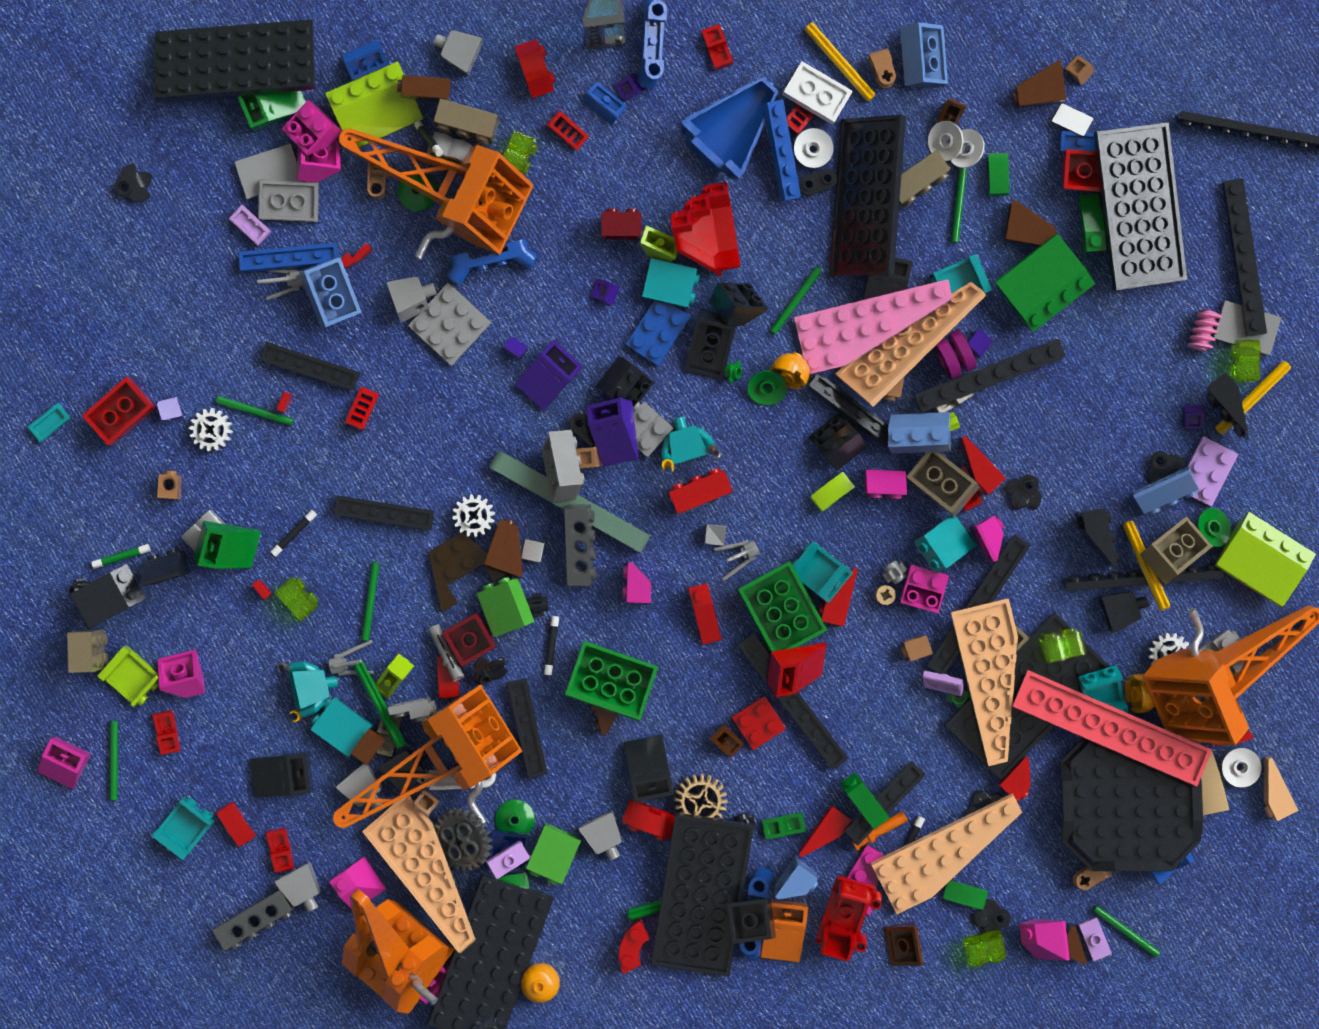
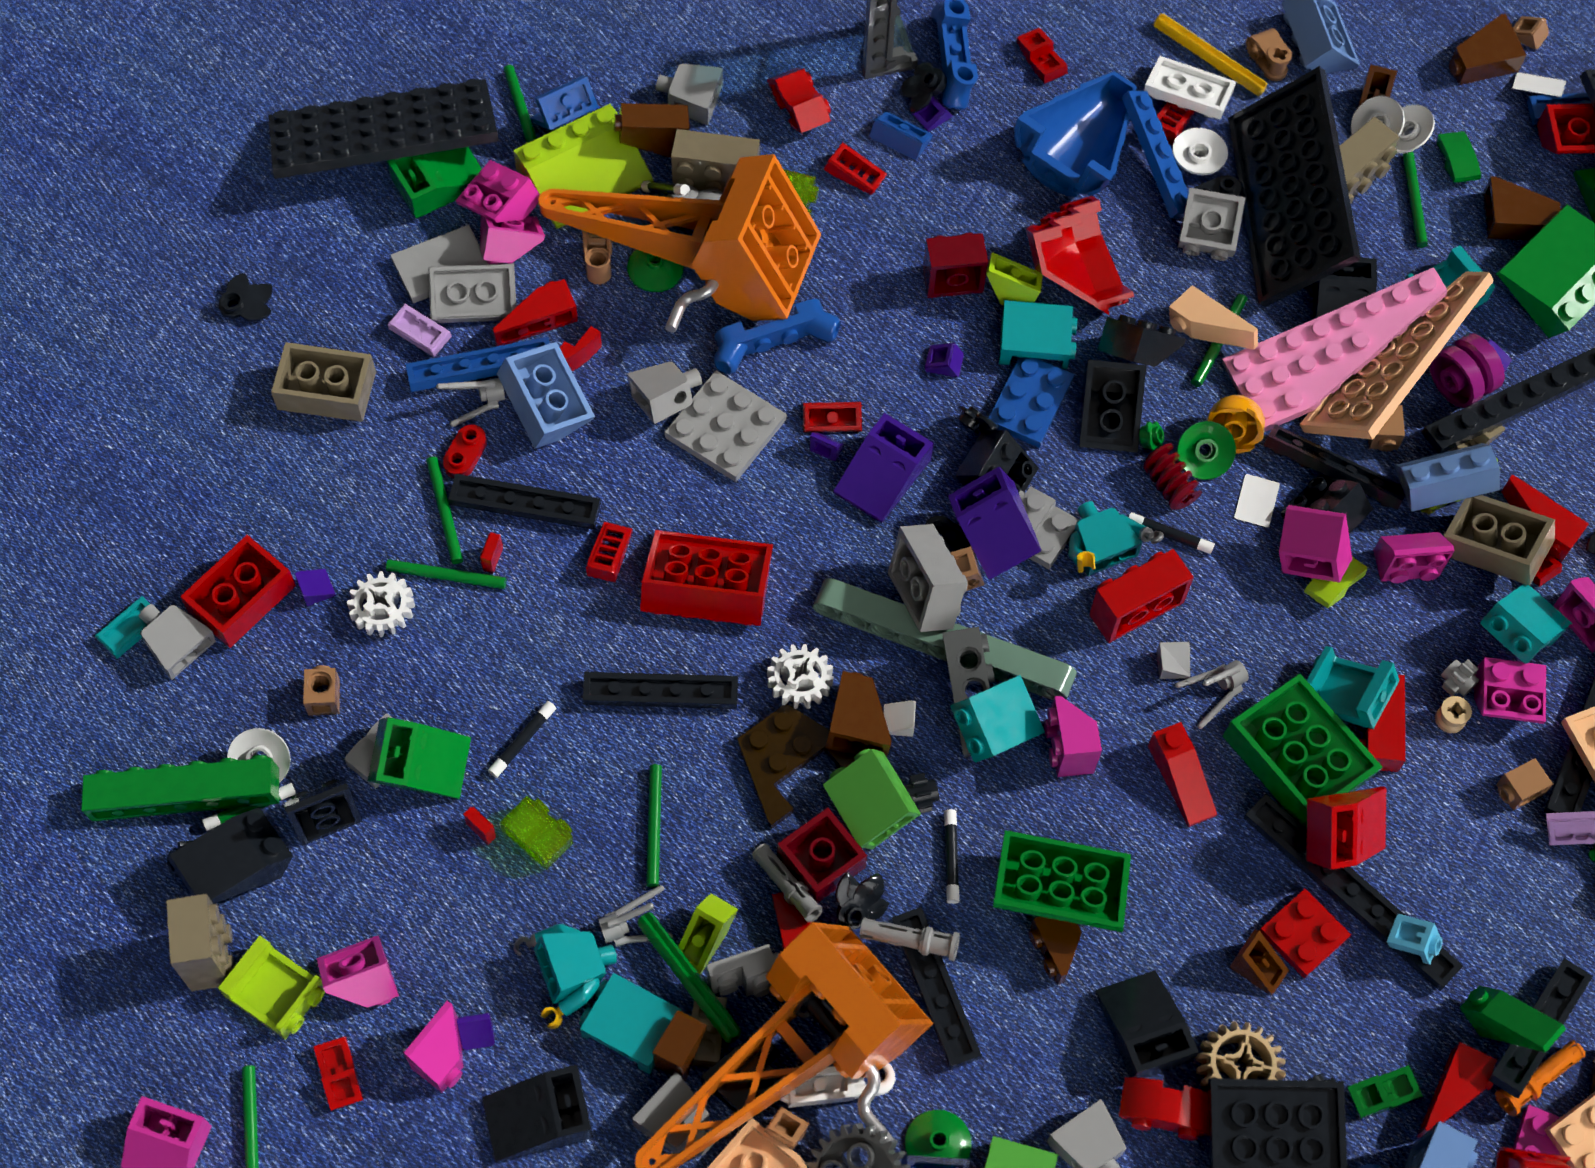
camera: 20 degrees left, 25 degrees down
(76, 437) = (174, 637): none -> light grey torso
(79, 543) = (180, 788): none -> green brick
(128, 528) = (264, 740): none -> white dish
(182, 261) = (323, 381): none -> dark tan brick
(226, 731) = (438, 1050): none -> dark pink slope
(250, 718) = (476, 1031): none -> dark purple slope
(257, 363) = (444, 510): none -> green bar
(274, 322) = (465, 449): none -> red plate
(335, 221) = (540, 312): none -> red slope
(336, 47) = (519, 103): none -> green bar
(423, 436) = (706, 578): none -> red slope
(522, 325) = (832, 416): none -> red slope
(524, 702) = (924, 940): none -> light grey pin
(592, 568) = (997, 719): none -> teal panel
(614, 343) = (974, 419): none -> black plate
(624, 68) = (923, 85): none -> black plate
(732, 442) = (1175, 534): none -> black bar
(739, 404) = (1170, 479): none -> dark red piece
(786, 288) = (1210, 321): none -> light nougat slope
(795, 424) = (1257, 500): none -> white sticker
(807, 212) = (1211, 224): none -> light grey plate
(820, 472) = (1315, 544): none -> dark pink slope
(821, 740) = (1415, 937): none -> medium azure bracket

